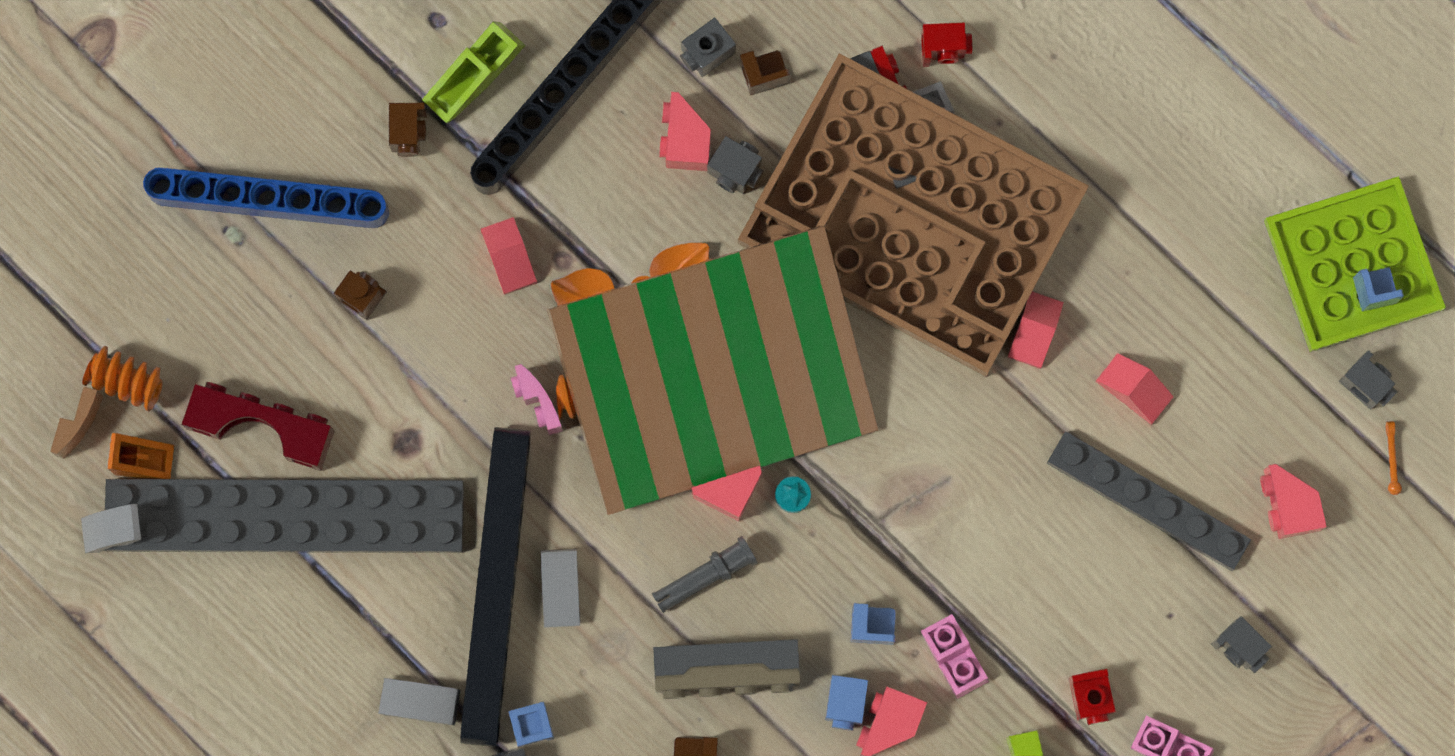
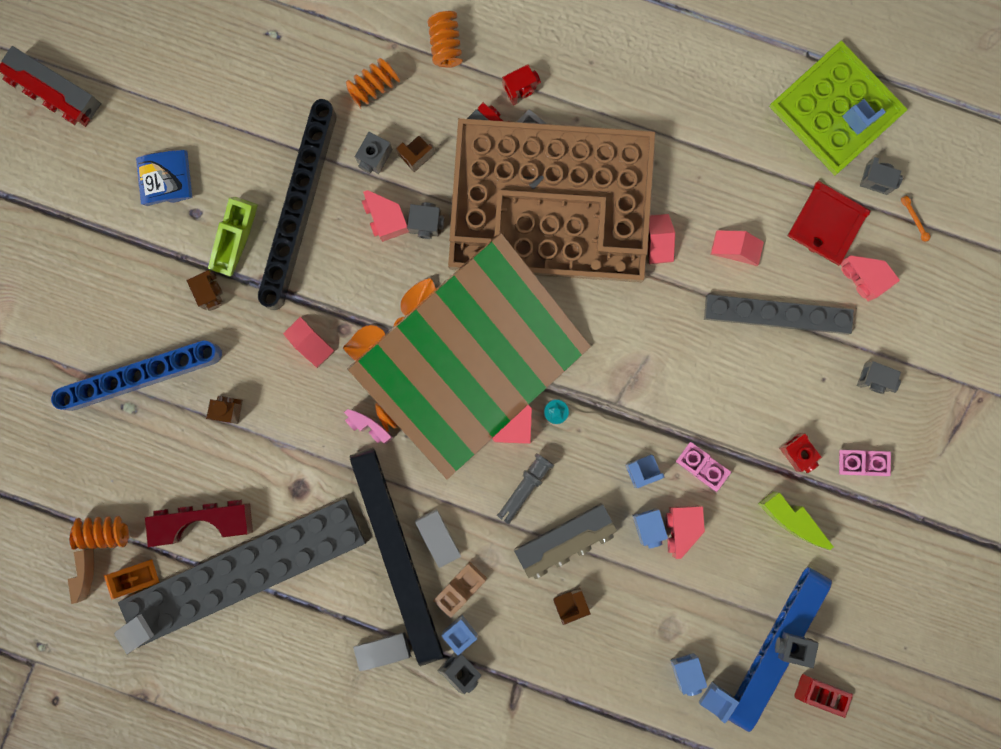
camera: 20 degrees left, 5 degrees up
(558, 668) = (460, 589): none -> medium nougat slope
(1277, 407) = (830, 219): none -> red container

